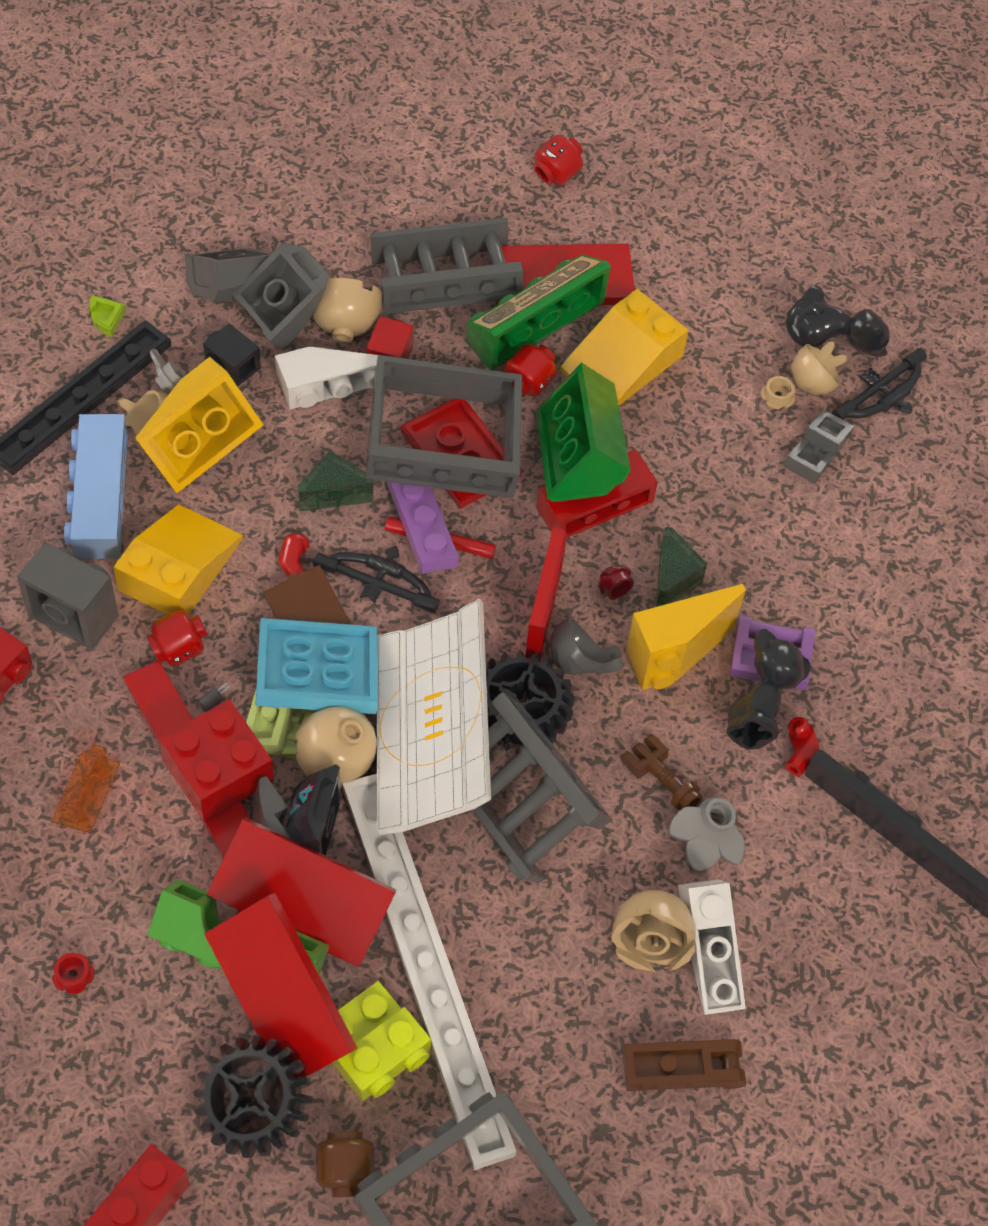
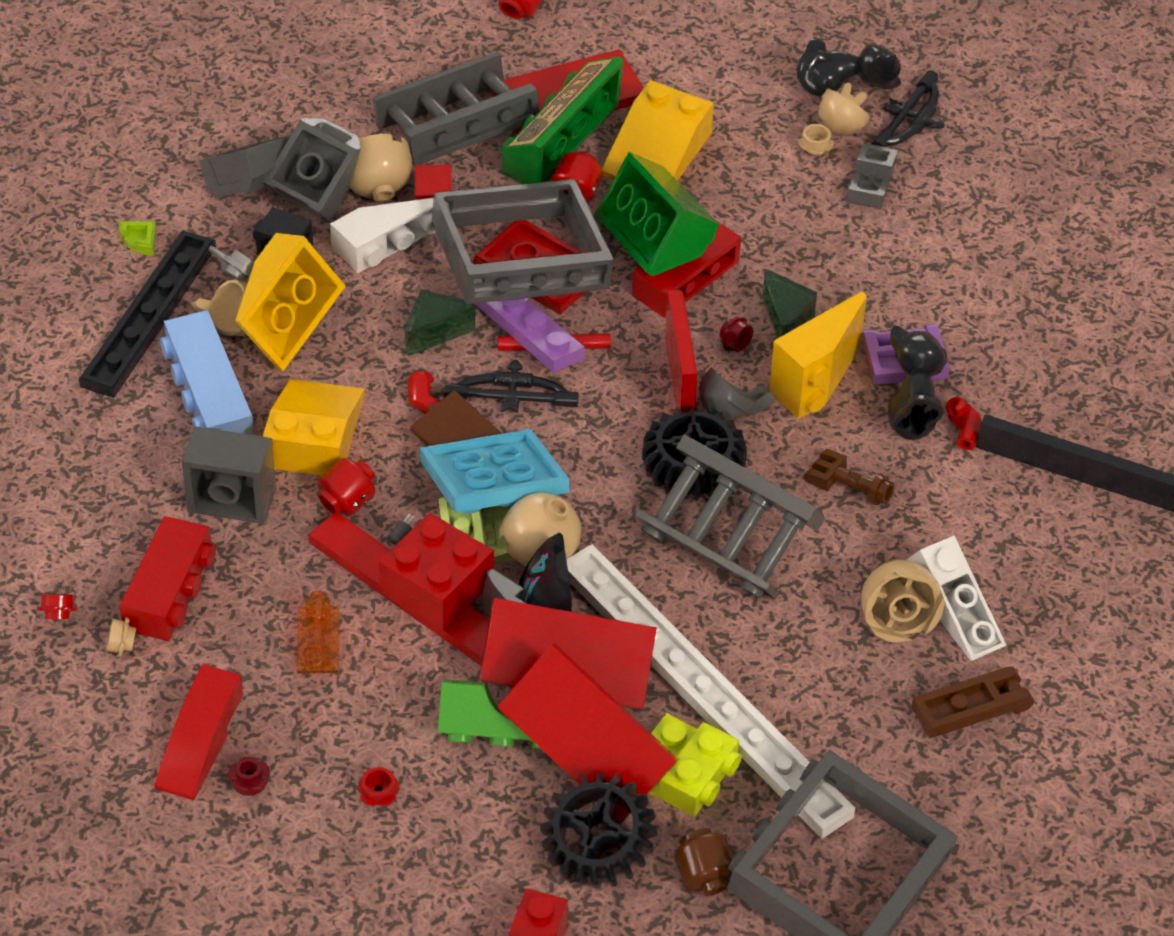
camera: 15 degrees left, 10 degrees down
(432, 721) = (627, 482): white hinge -> none
(704, 837) = (912, 514): light grey plate -> none

